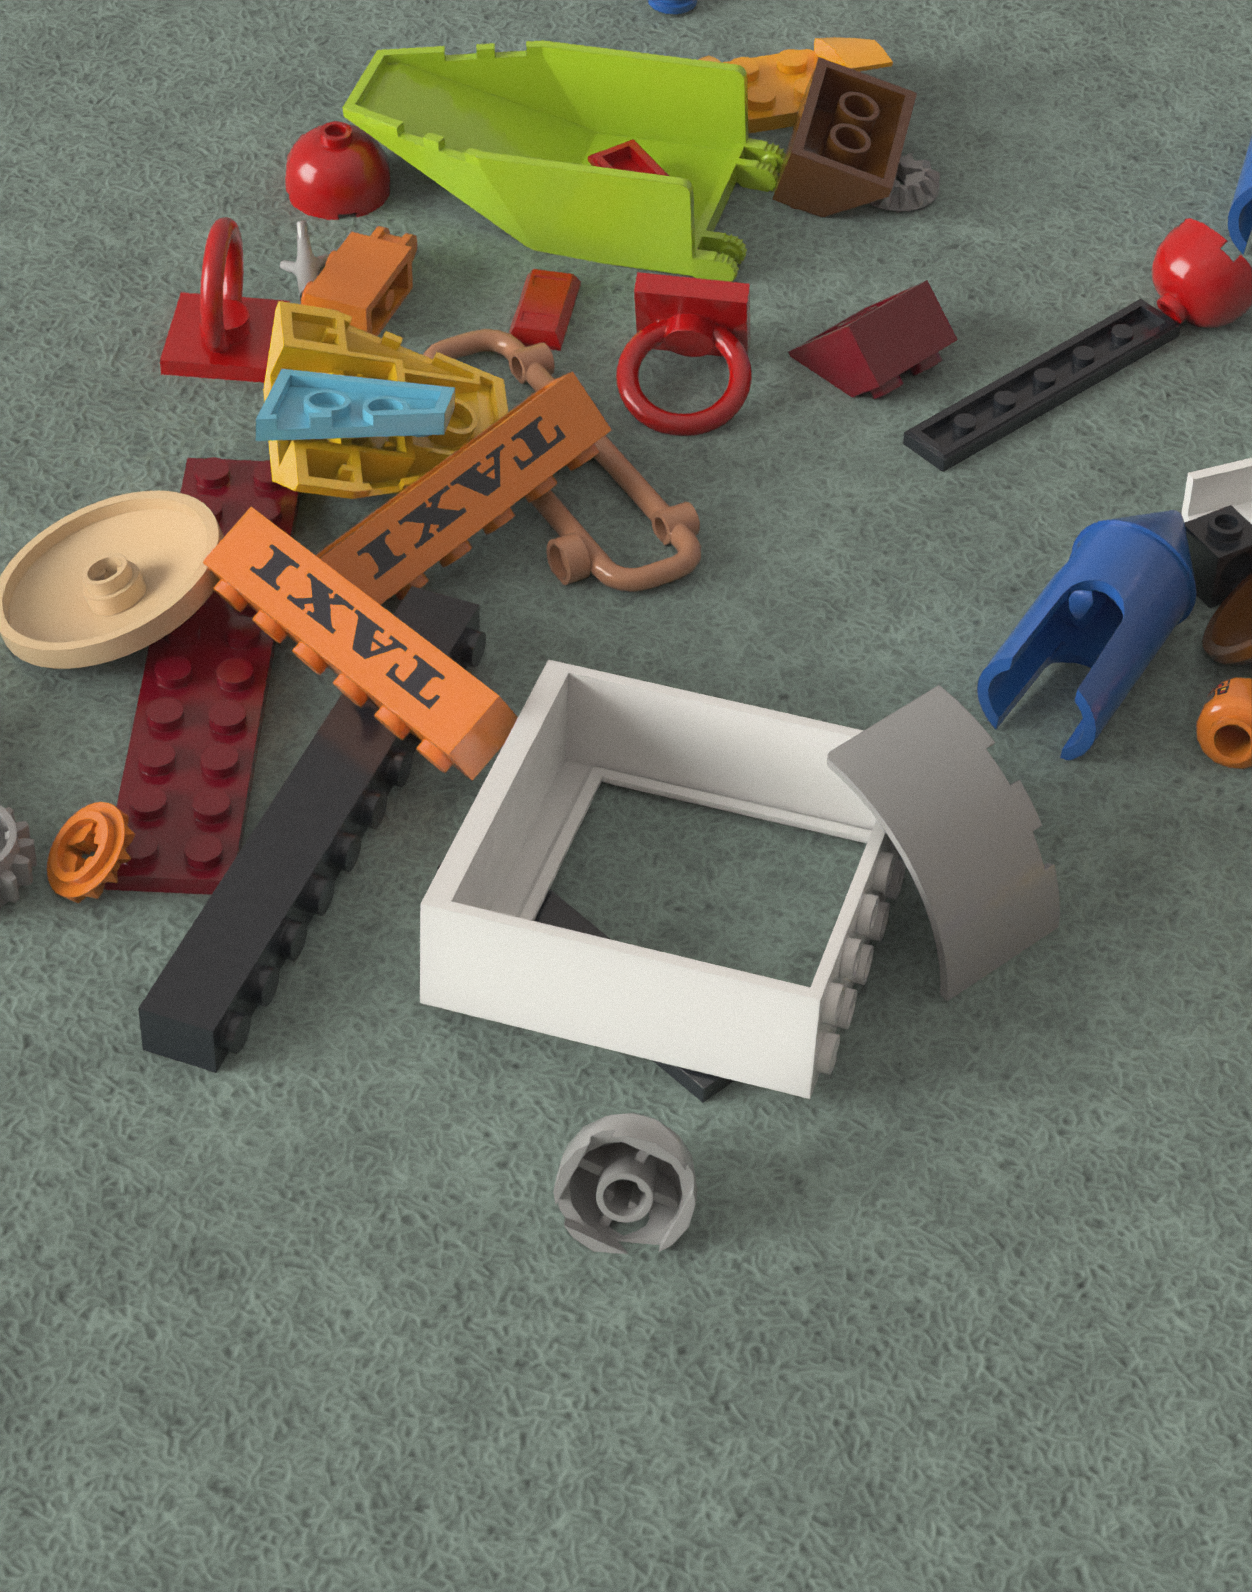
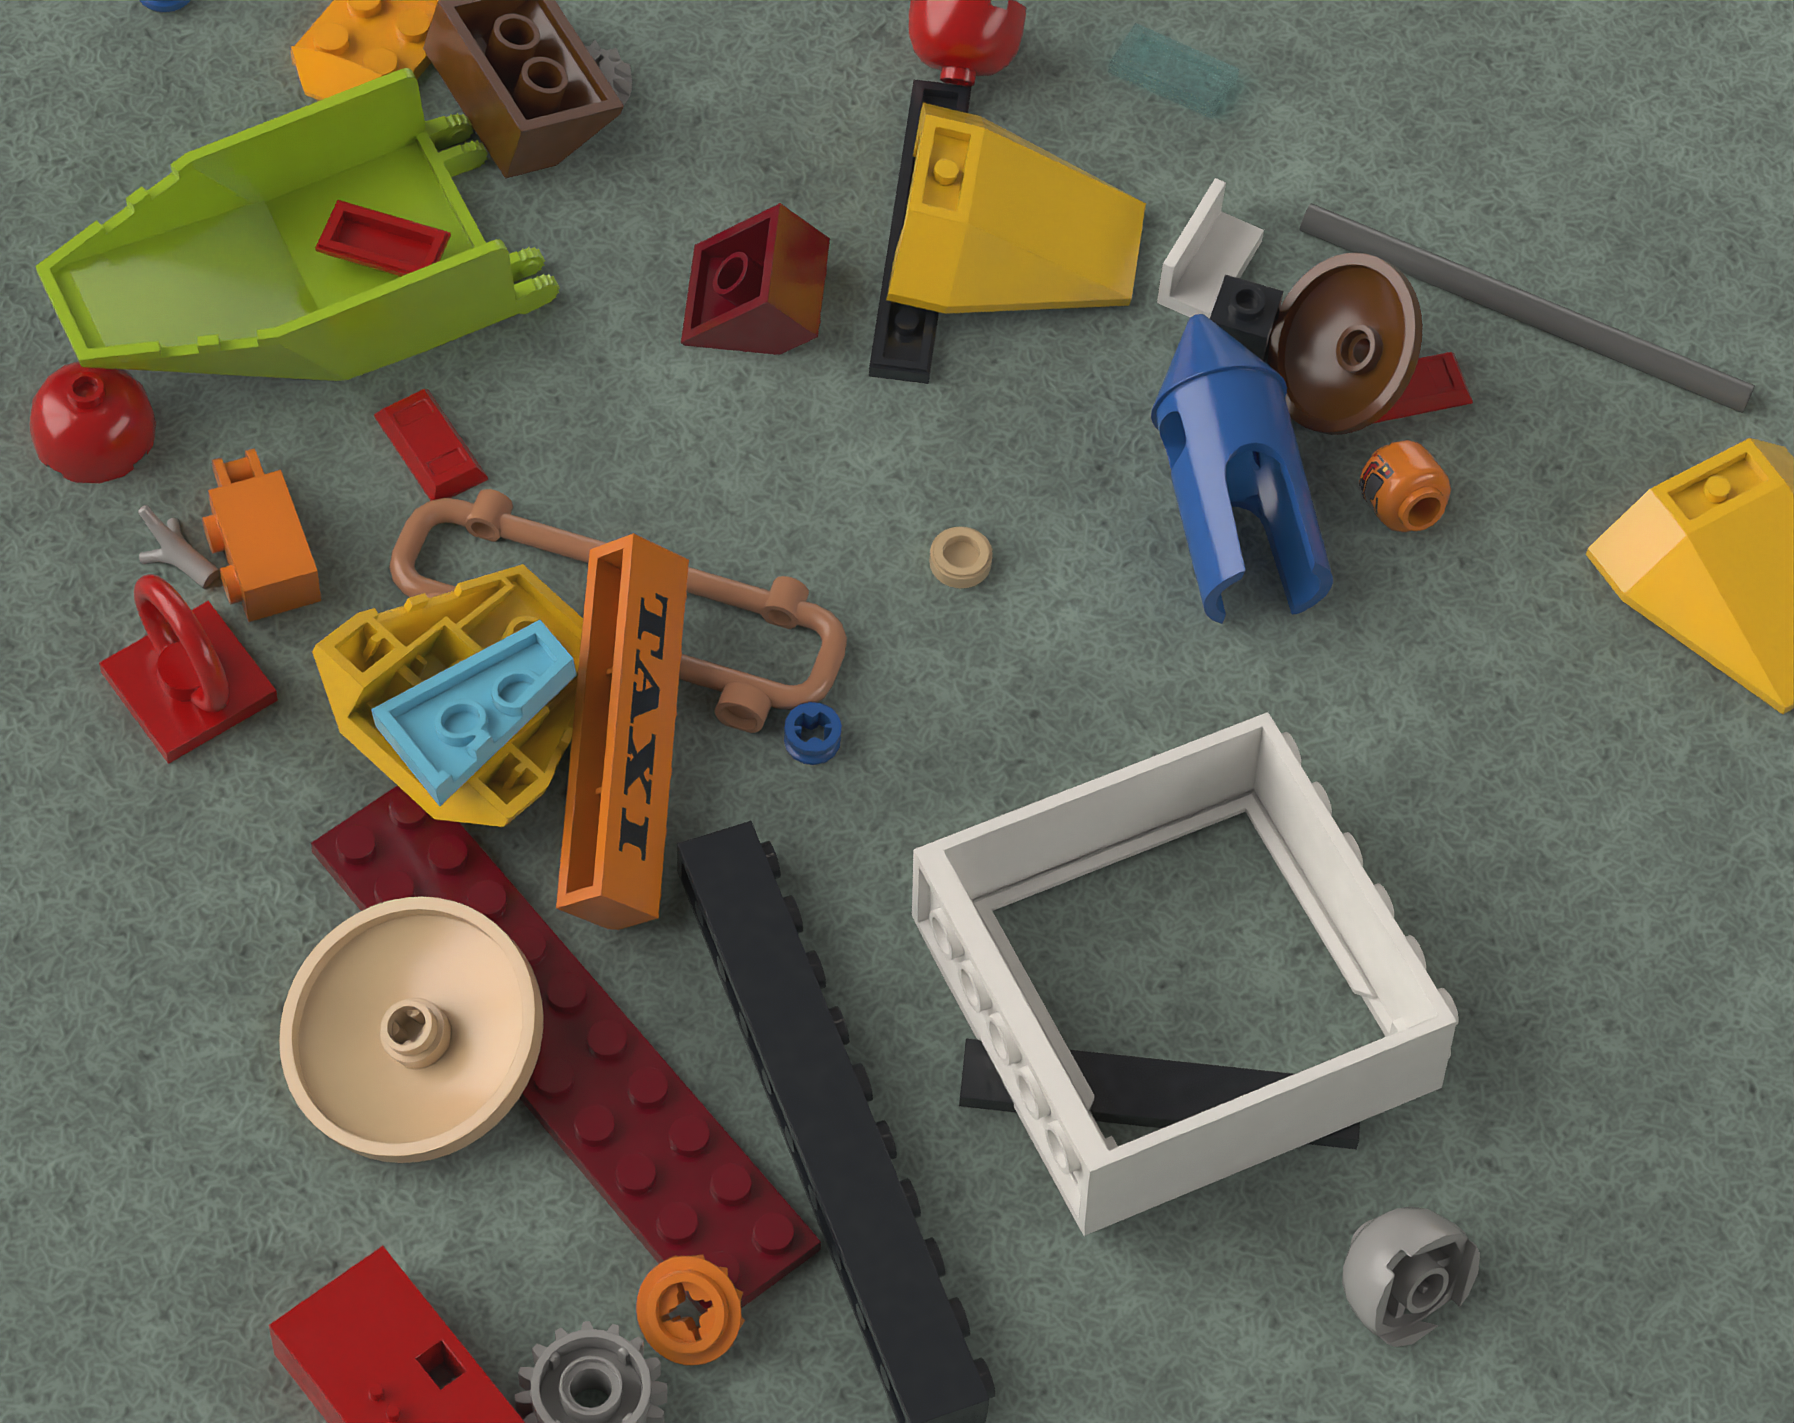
camera: 45 degrees left, 15 degrees up
(362, 644) = (732, 946): orange brick -> none
(600, 618) = (810, 716): none -> blue bush
(694, 321) = (611, 384): red tile -> none
(839, 574) = (960, 557): none -> tan tile
(957, 832) = (1355, 764): light grey panel -> none
(1097, 395) = (1009, 225): none -> yellow wedge

